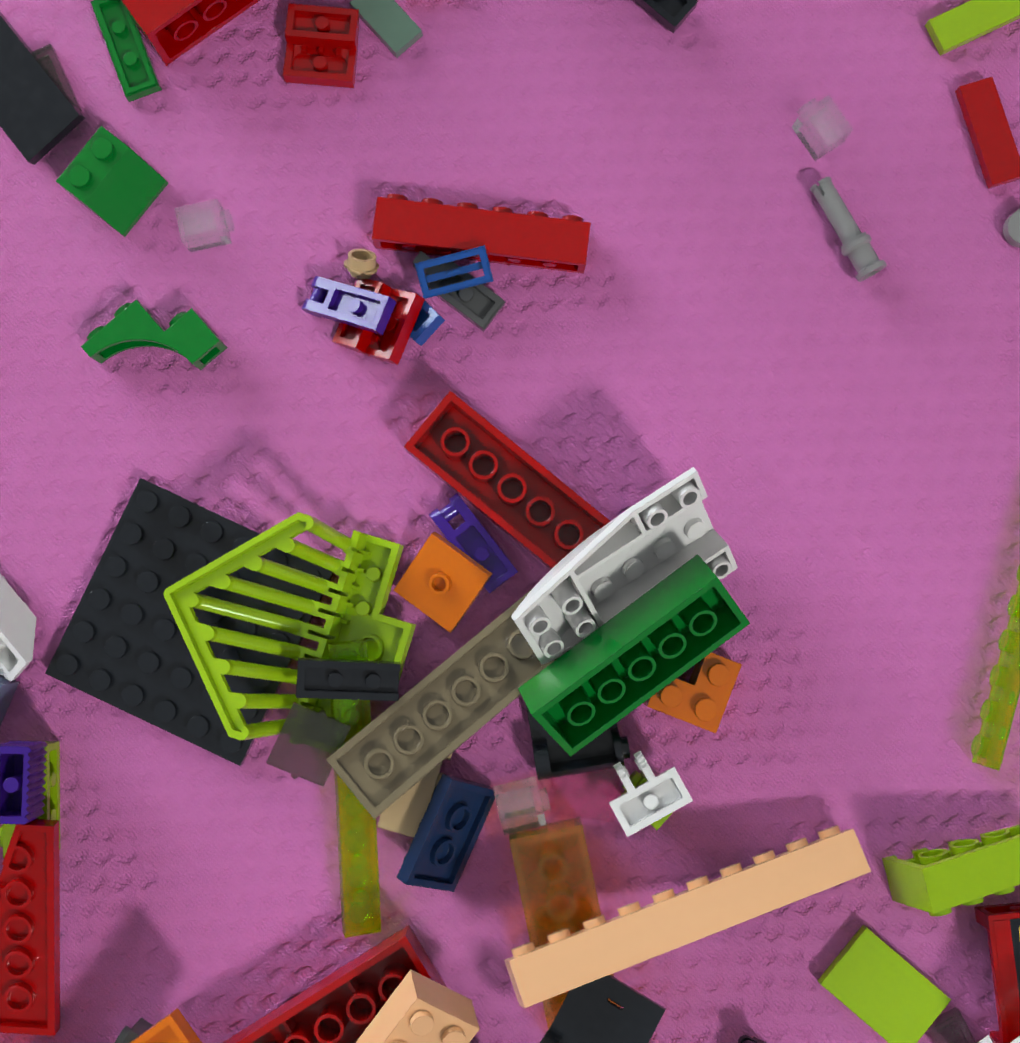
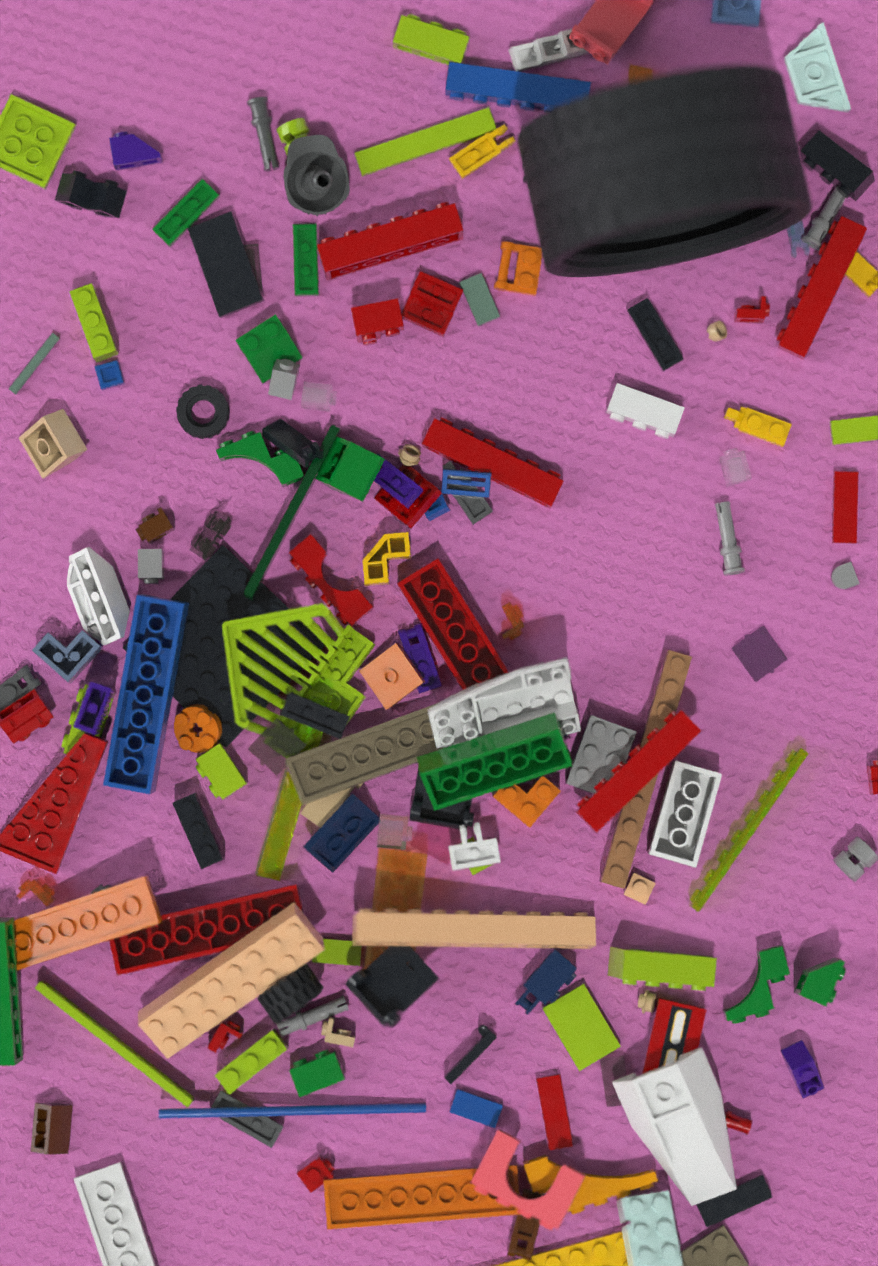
camera: 20 degrees right, 0 degrees up
(22, 294) = (208, 394): none -> black tyre
(34, 485) = (154, 527): none -> reddish brown brick
(46, 542) = (150, 565): none -> light grey brick
(92, 732) = (145, 694): none -> blue brick
(117, 451) = (214, 525): none -> clear smoke hinge
(146, 214) = (284, 379): none -> light grey brick
(176, 765) = (204, 718): none -> orange plate
(187, 298) = (292, 442): none -> black hinge
(220, 400) = (289, 516): none -> dark green tile
(240, 901) = (198, 831): none -> black brick
(244, 803) = (220, 771): none -> lime brick
(246, 84) = (377, 319): none -> red brick
(271, 454) = (350, 604): none -> red arch
(281, 308) = (349, 469): none -> green slope
(375, 402) = (389, 547): none -> yellow brick
(498, 1005) = (339, 952): none -> lime tile
(585, 437) = (513, 614): none -> clear orange bracket
(669, 91) = (644, 411): none -> white brick
(779, 595) = (599, 752): none -> light grey brick
(814, 943) = (547, 981): none -> dark blue brick
(831, 60) = (759, 425): none -> yellow hinge
(847, 598) = (638, 770): none -> red brick
(848, 592) = (634, 812): none -> medium nougat brick
(895, 762) = (639, 888): none -> light nougat plate
(927, 636) = (684, 813): none -> white brick
(943, 374) = (759, 653): none -> clear purple piece
(965, 922) = (647, 1002): none -> tan plate

